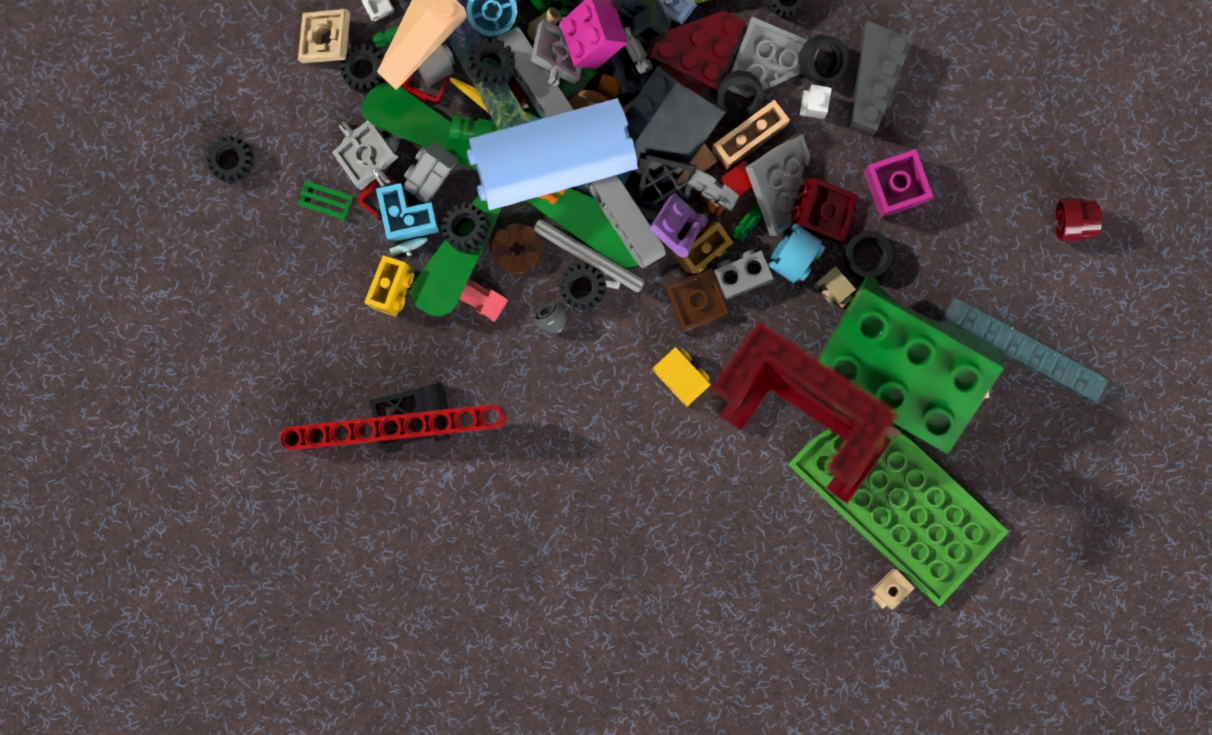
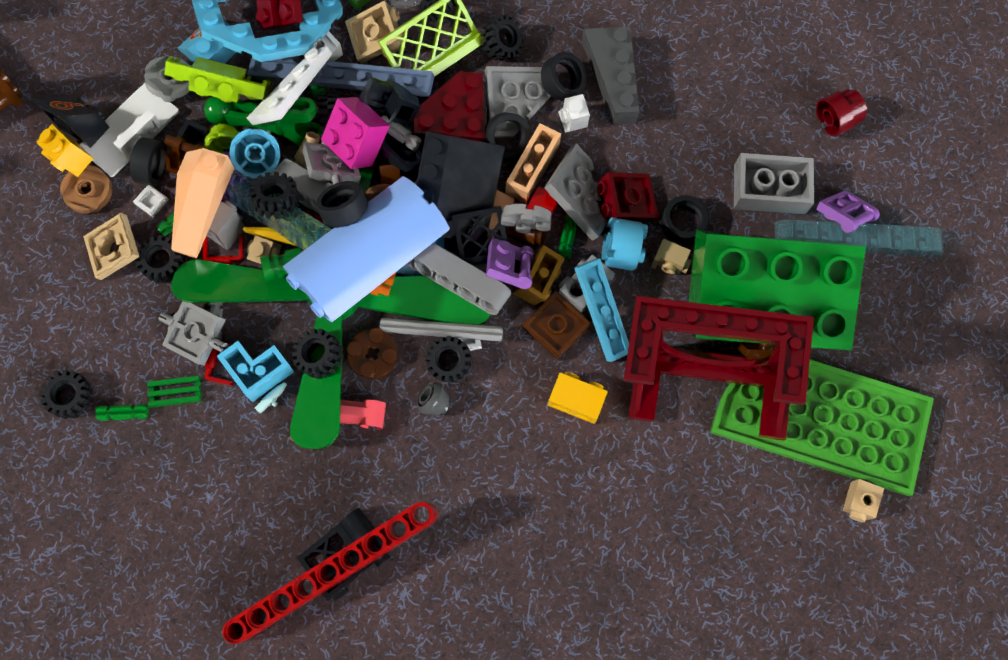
camera: 30 degrees left, 10 degrees down
(272, 198) = (122, 412): none -> green axle
(390, 286) = (269, 440): yellow brick -> none
(430, 172) = (260, 319): light grey brick -> none
(460, 104) = (261, 247): none -> tan brick
(550, 114) = (341, 215): none -> black tyre
(743, 301) = (603, 309): none -> medium azure plate
(898, 183) = (678, 148): dark pink brick -> none
(970, 261) = (773, 183): none -> light grey brick
(1026, 313) = (843, 205): none -> medium lavender plate

